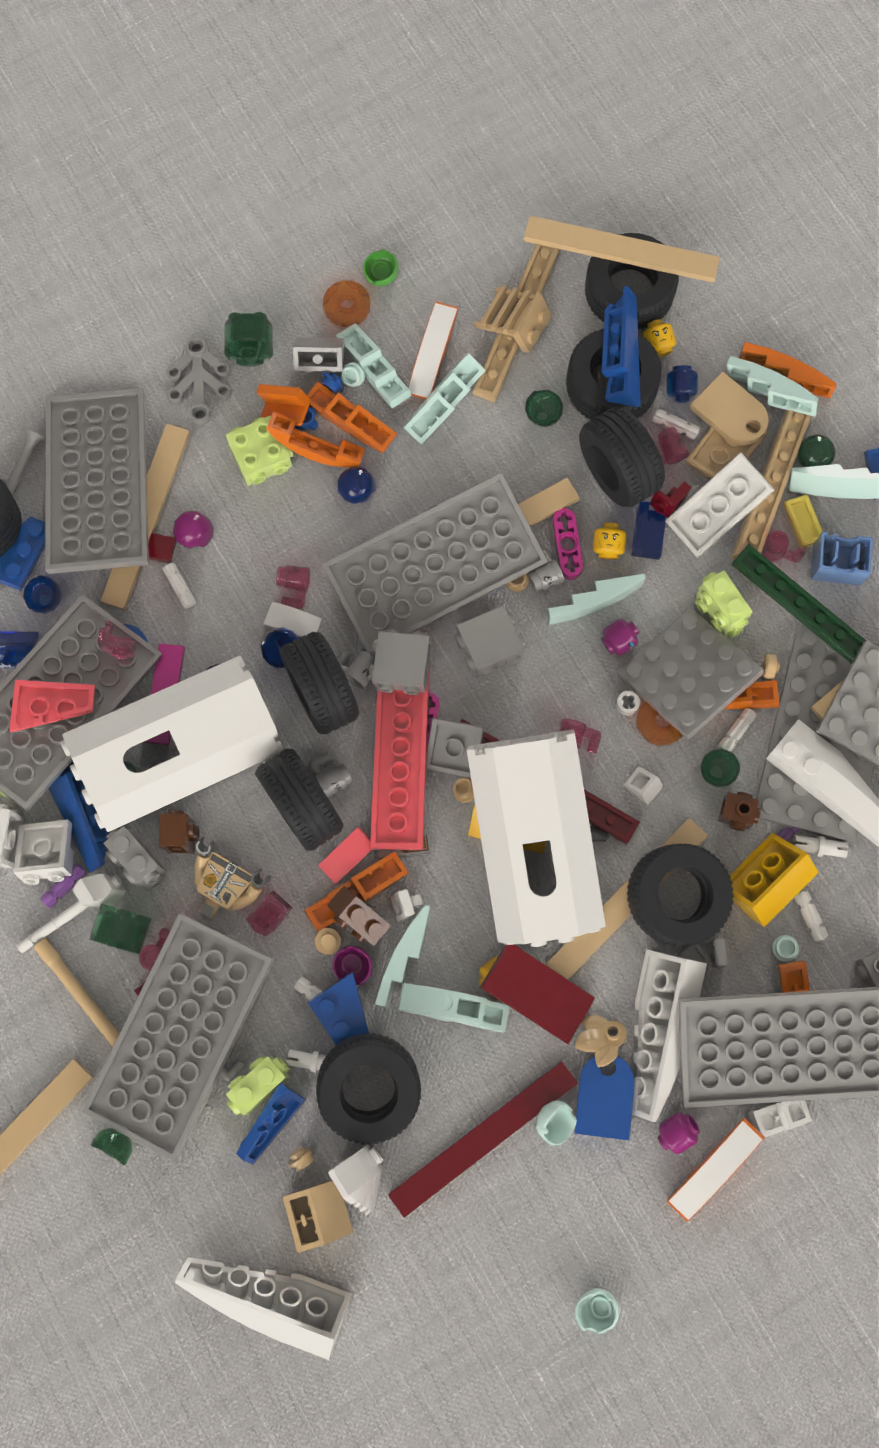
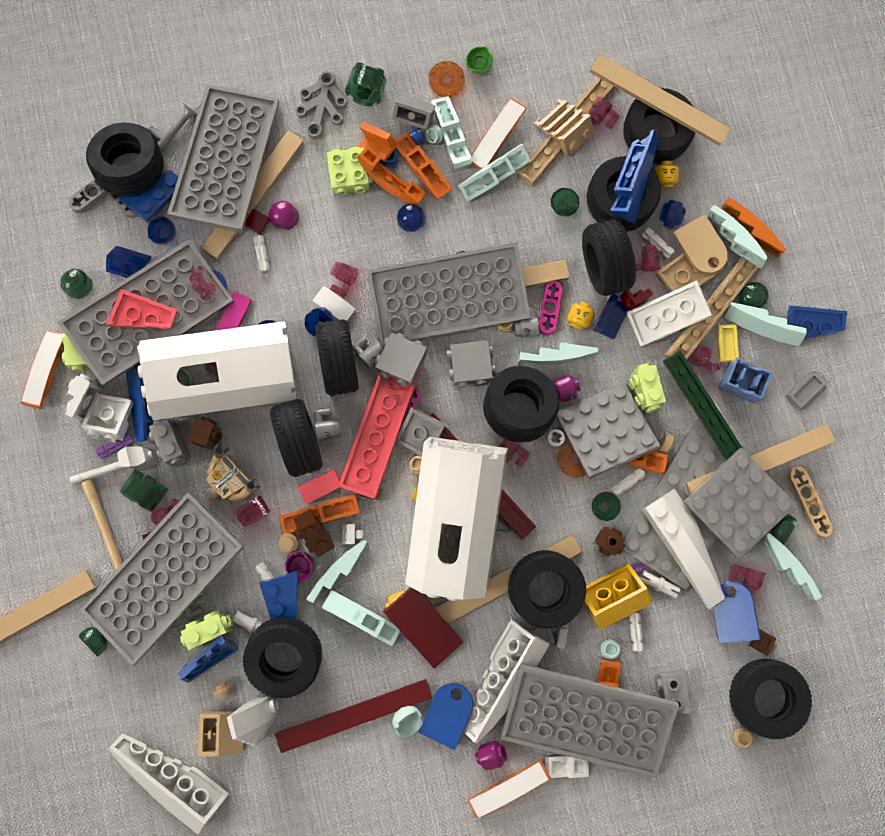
camera: 10 degrees right, 5 degrees up
(551, 284) = (600, 110): none -> clear pink piece
(573, 643) = (528, 382): none -> black tyre
(598, 1040) = (456, 673): tan plate -> none
(643, 785) = (547, 501): white slope -> none

